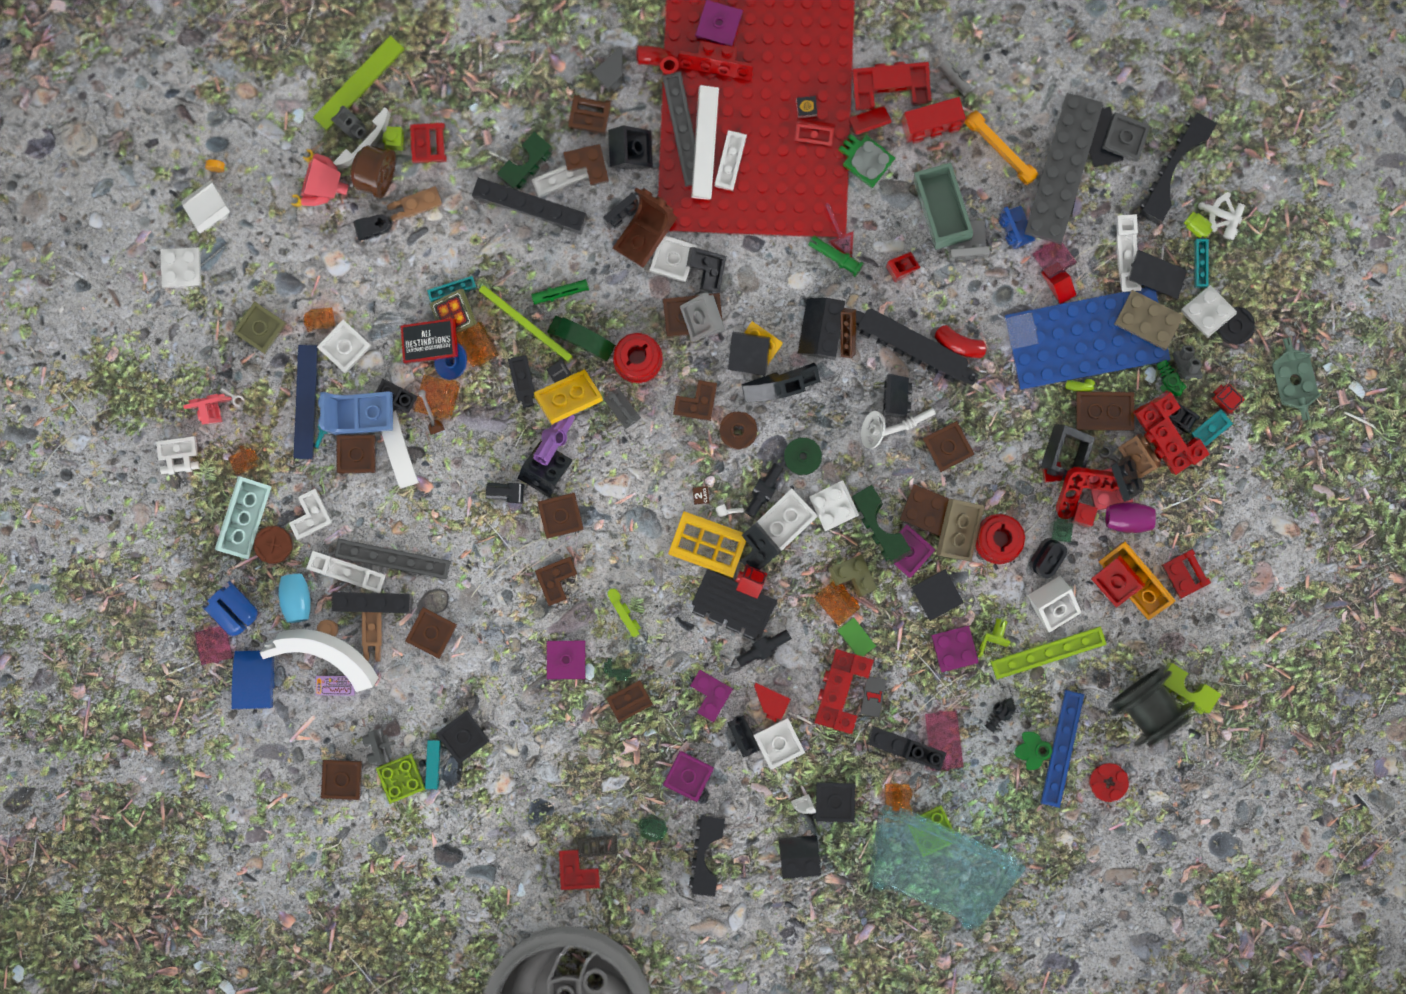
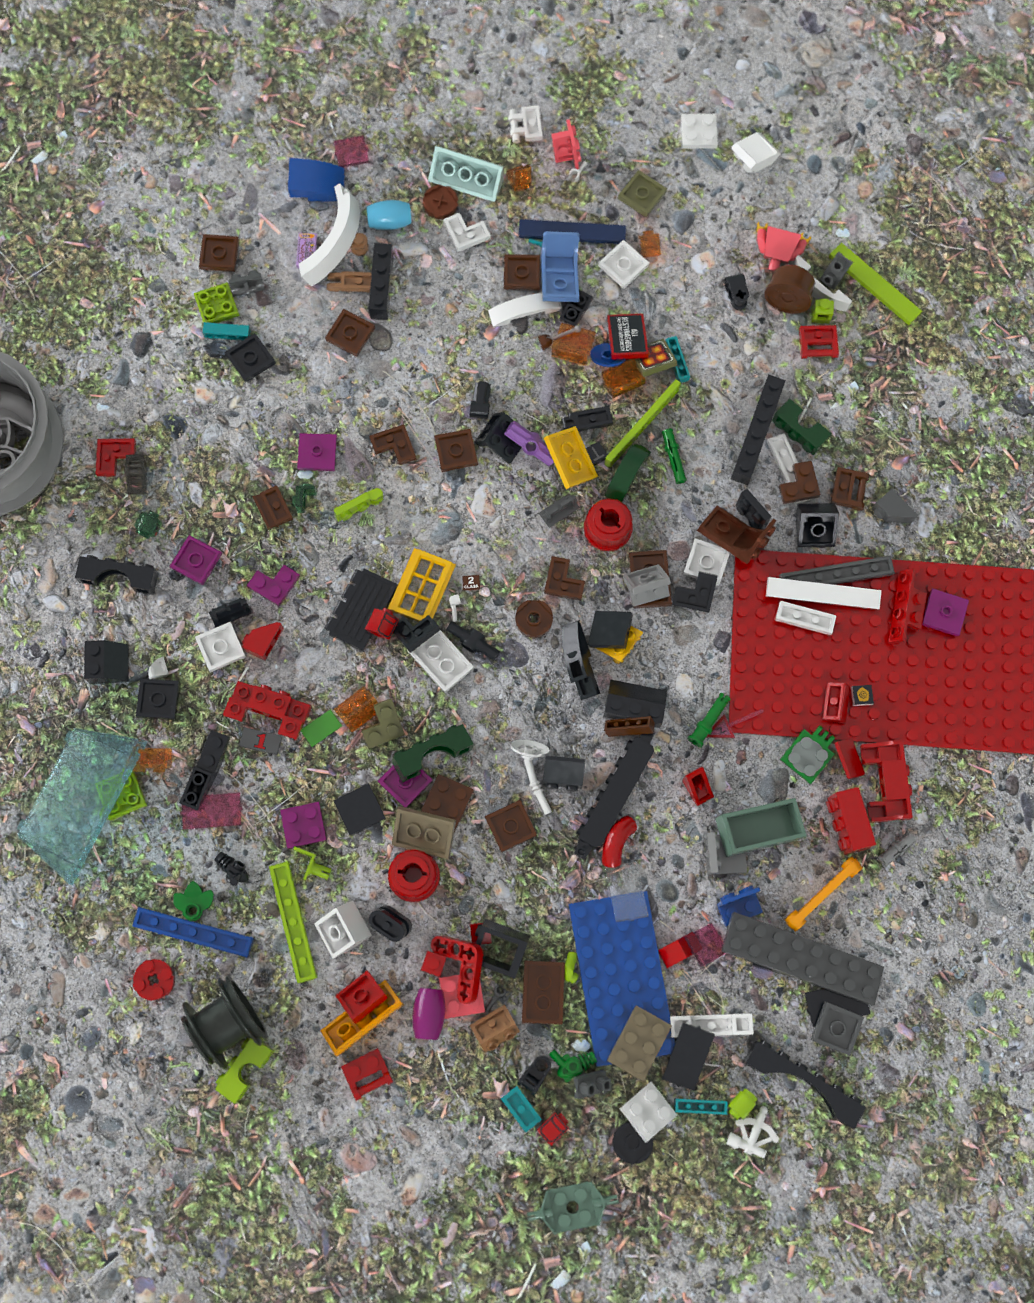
camera: 85 degrees right, 10 degrees down
(214, 165) = (793, 159): light orange tile -> none
(230, 600) = (381, 161): blue cylinder -> none
(346, 572) = (412, 260): white slope -> none
(392, 559) = (422, 302): dark grey tile -> none
(416, 203) = (759, 331): medium nougat hinge -> none
(657, 57) = (909, 550): red cylinder -> none
(763, 648) = (316, 635): black pin -> none
(795, 463) = (508, 690): dark green plate -> none
(834, 505) = (454, 707): white plate -> none
(1061, 530) = (418, 938): clear green bracket -> none
(1127, 478) = (469, 1009): black plate -> none
(1165, 437) = (531, 1042): red bracket -> none

